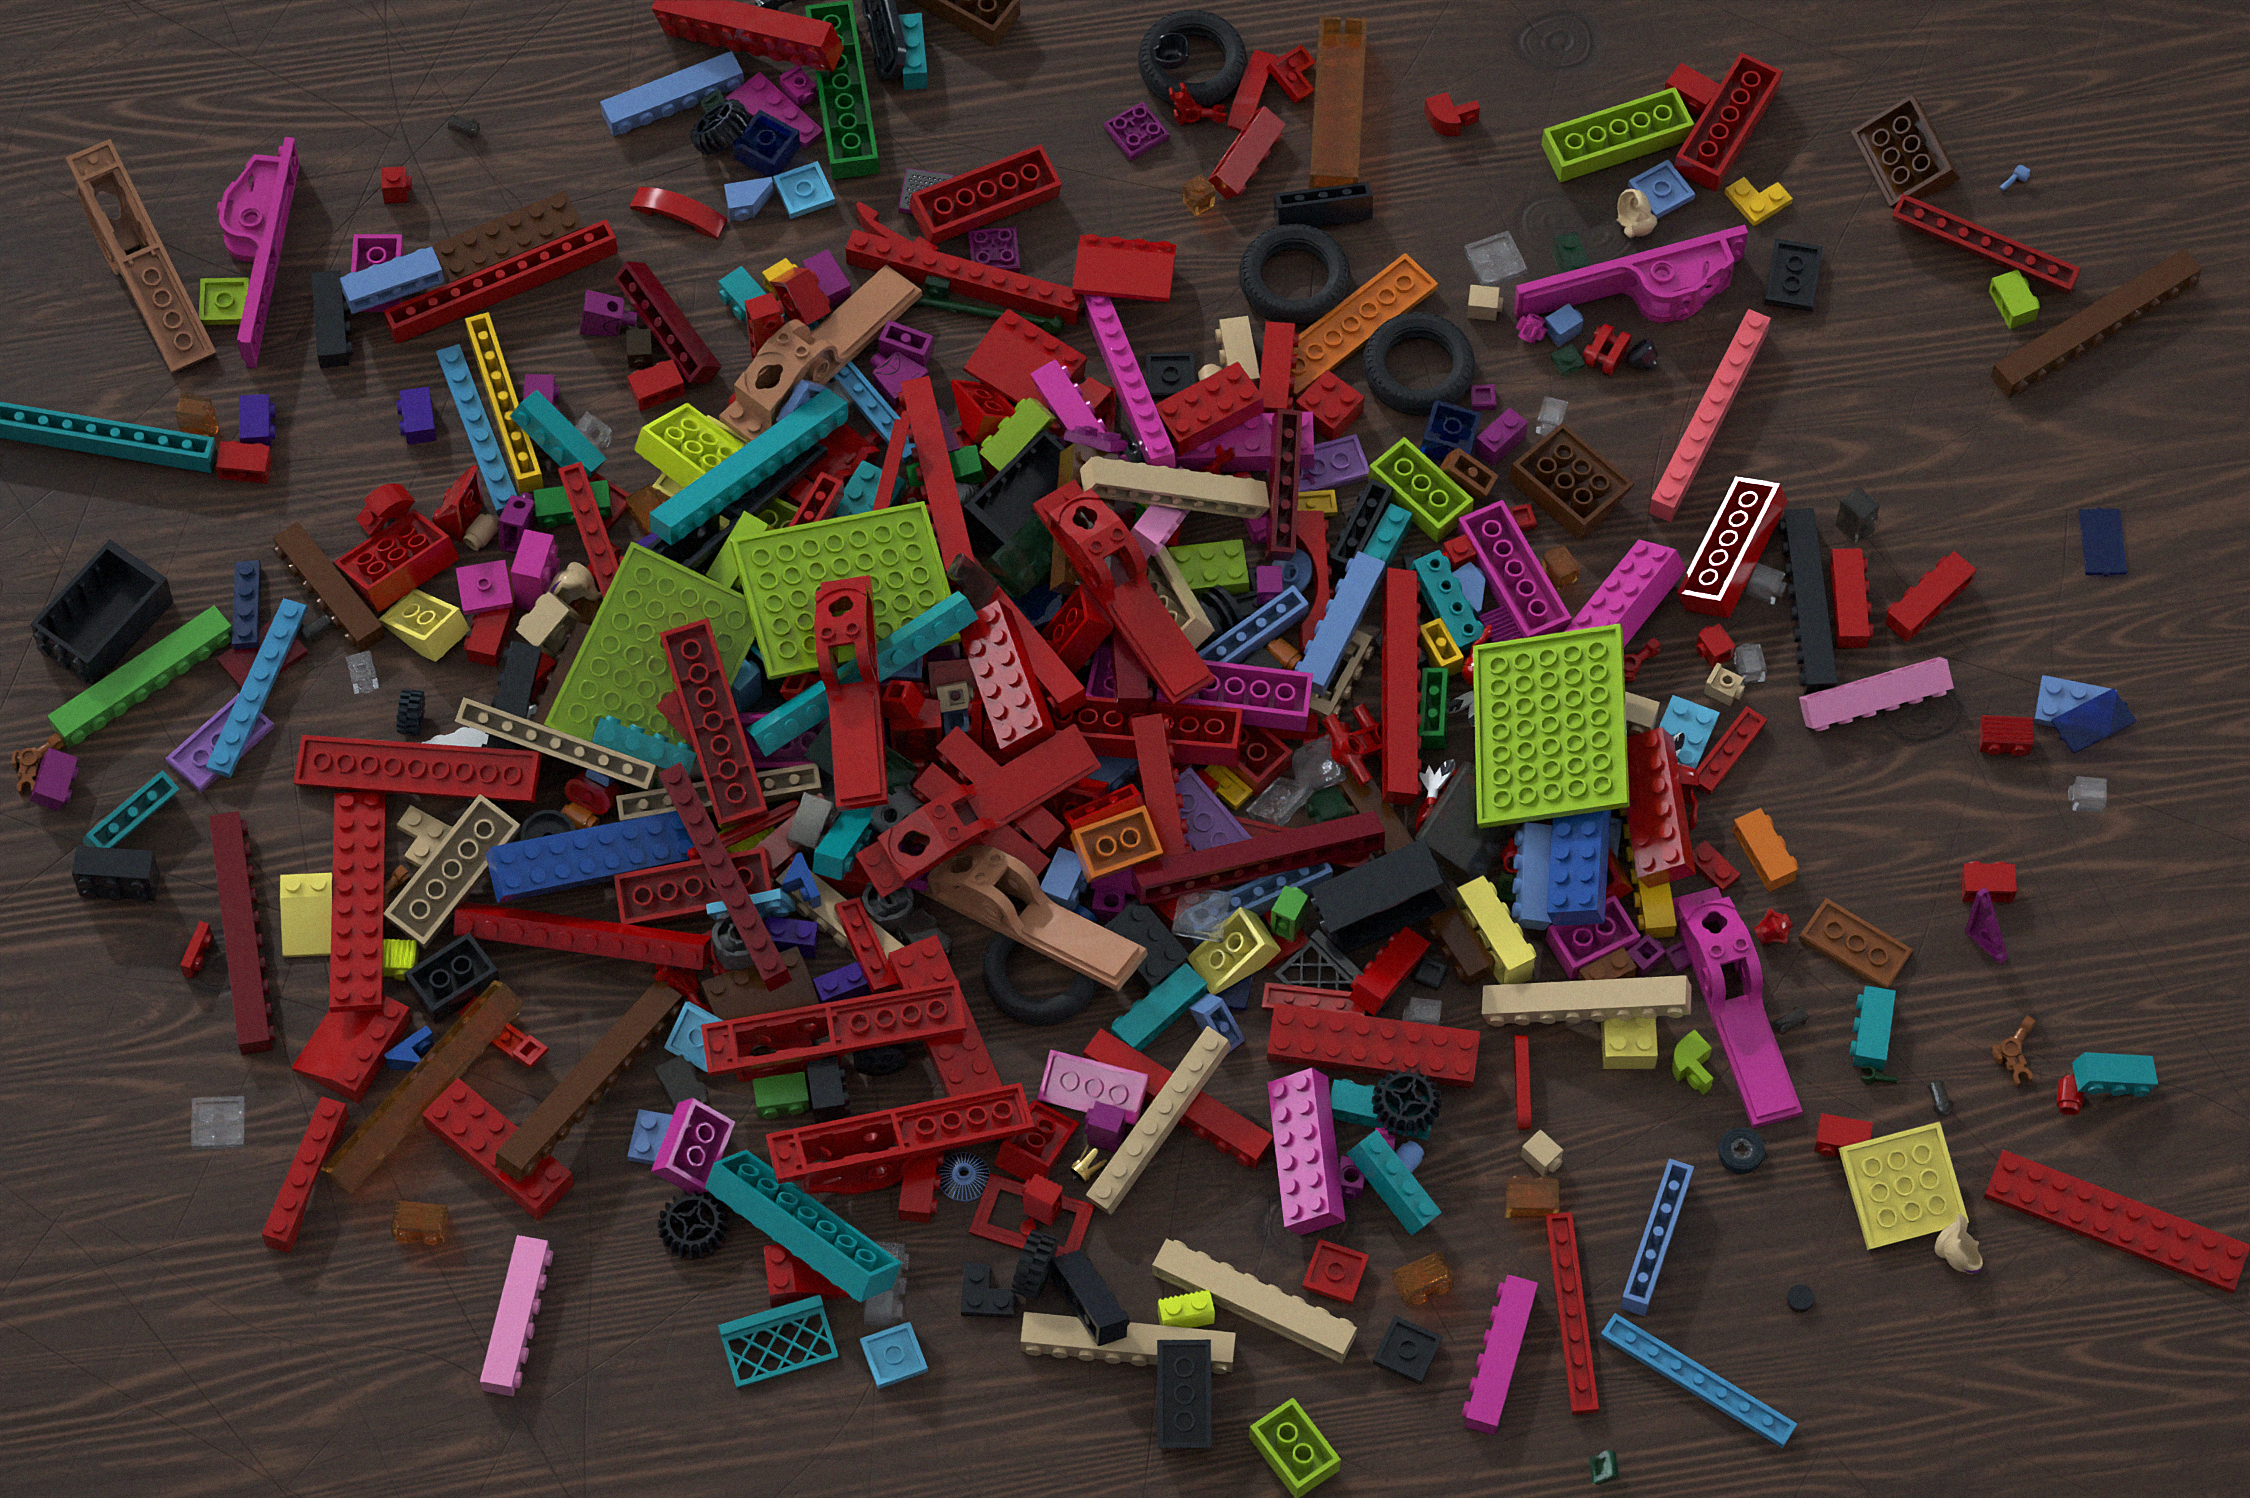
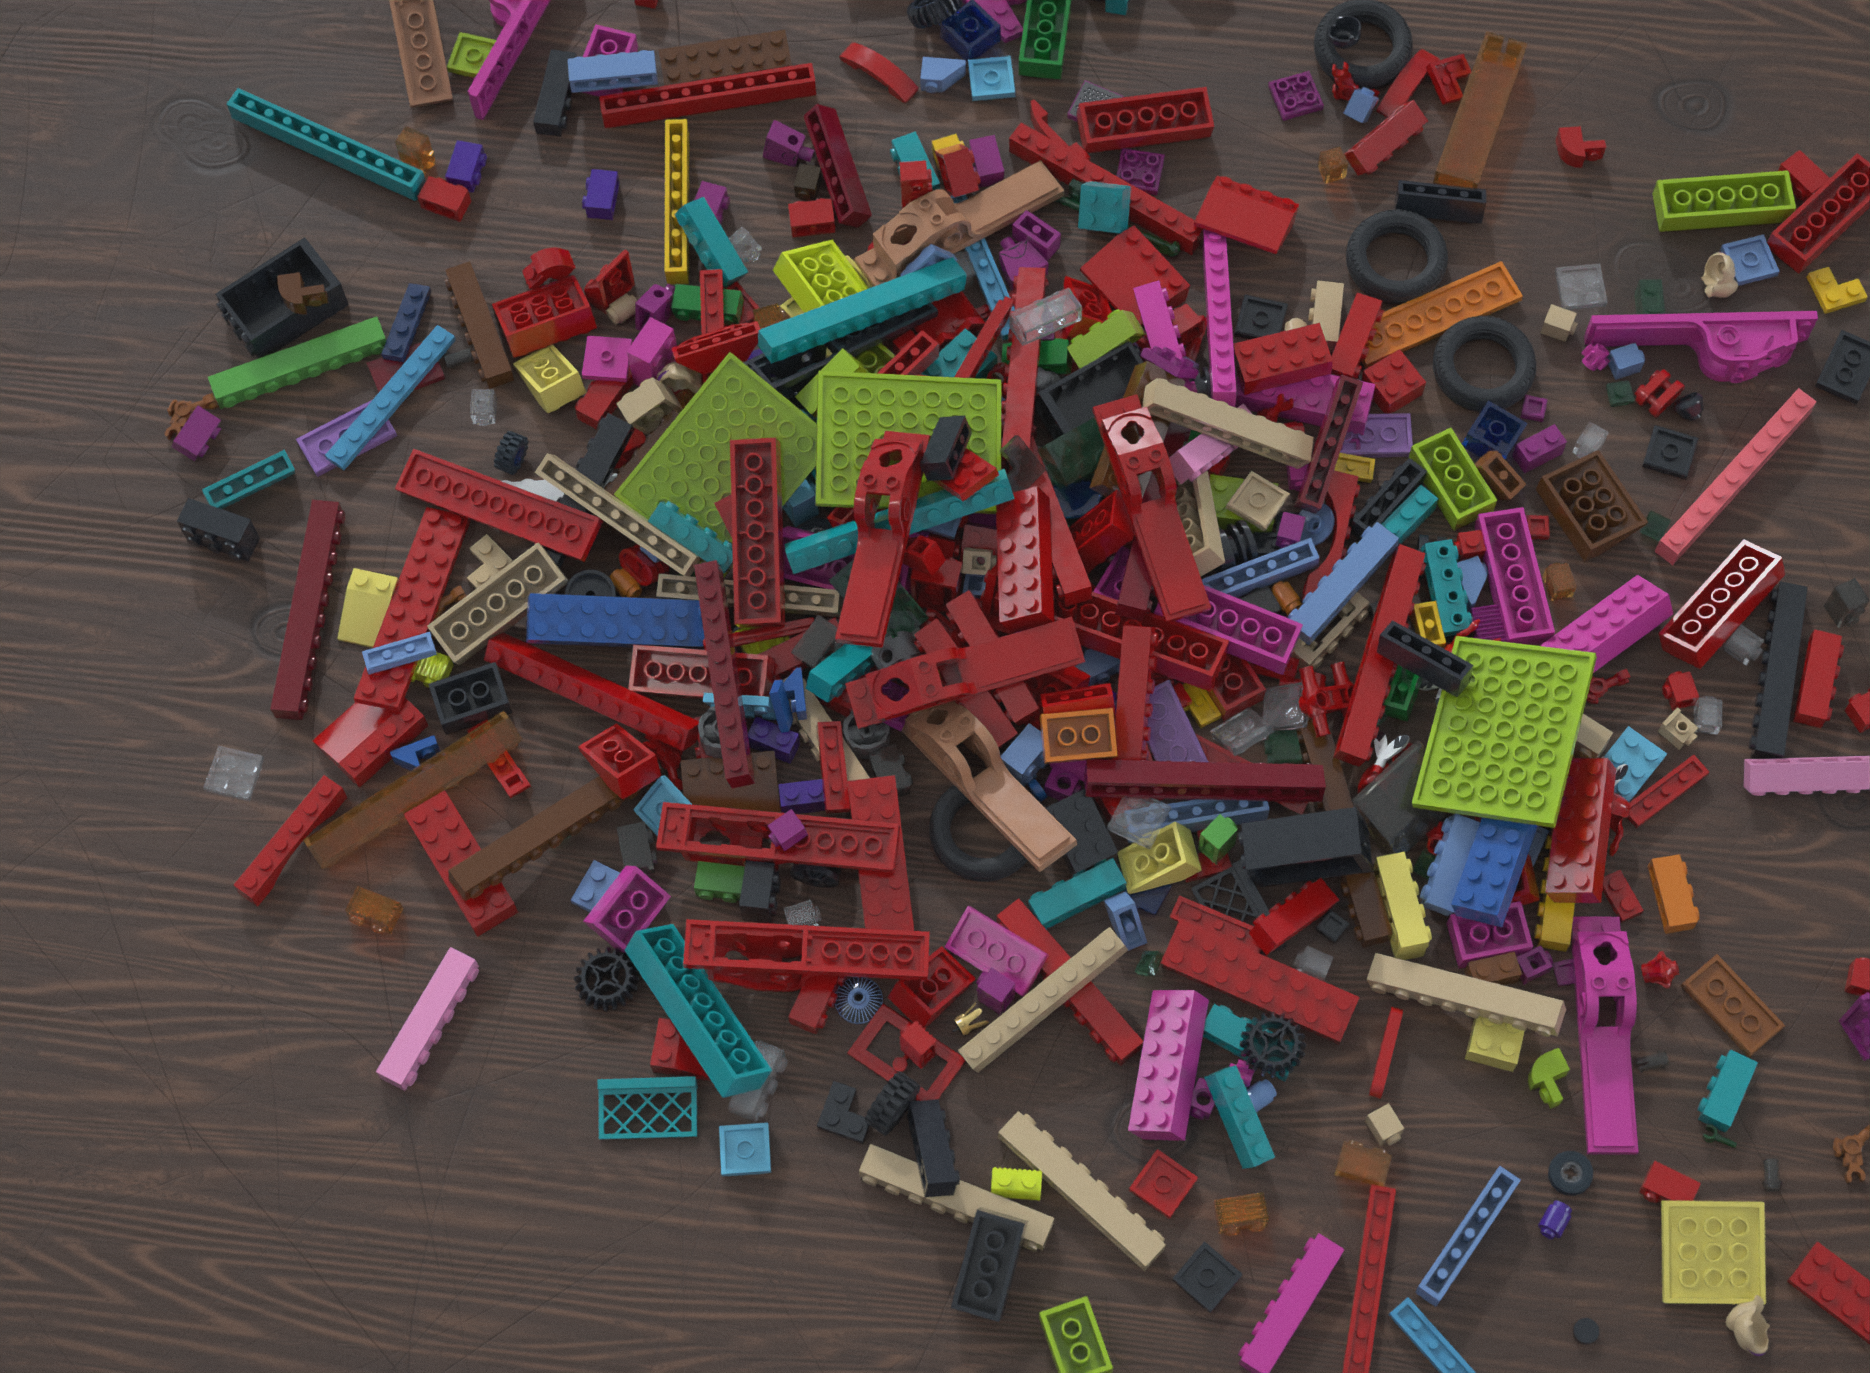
camera: 20 degrees right, 5 degrees up
(126, 604) = (297, 296): none -> reddish brown brick
(194, 958) = (265, 614): red plate -> none
(363, 948) = (399, 653): none -> medium blue tile
(476, 426) = (649, 215): dark azure plate -> none
(601, 547) = (709, 349): none -> red wedge
(640, 996) = (621, 760): none -> red slope
(792, 896) = (781, 706): none -> blue tile
(844, 1016) = (786, 830): none -> magenta brick
(878, 1101) = (802, 914): none -> clear brick
(891, 584) = (946, 448): none -> black brick
(913, 605) = (970, 476): none -> red plate
(948, 425) = (1045, 316): none -> clear brick
(971, 297) = (1104, 207): none -> teal brick
(1210, 124) = (1361, 105): none -> medium blue brick
(1226, 561) = (1257, 501): none -> tan tile
(1254, 1058) = (1149, 963): none -> clear green tile
(1448, 675) = (1424, 658): none -> black brick
(1636, 407) = (1670, 452): none -> black tile
(1643, 486) = (1656, 525): none -> clear green plate
(1739, 1199) = (1555, 1220): none -> dark purple brick

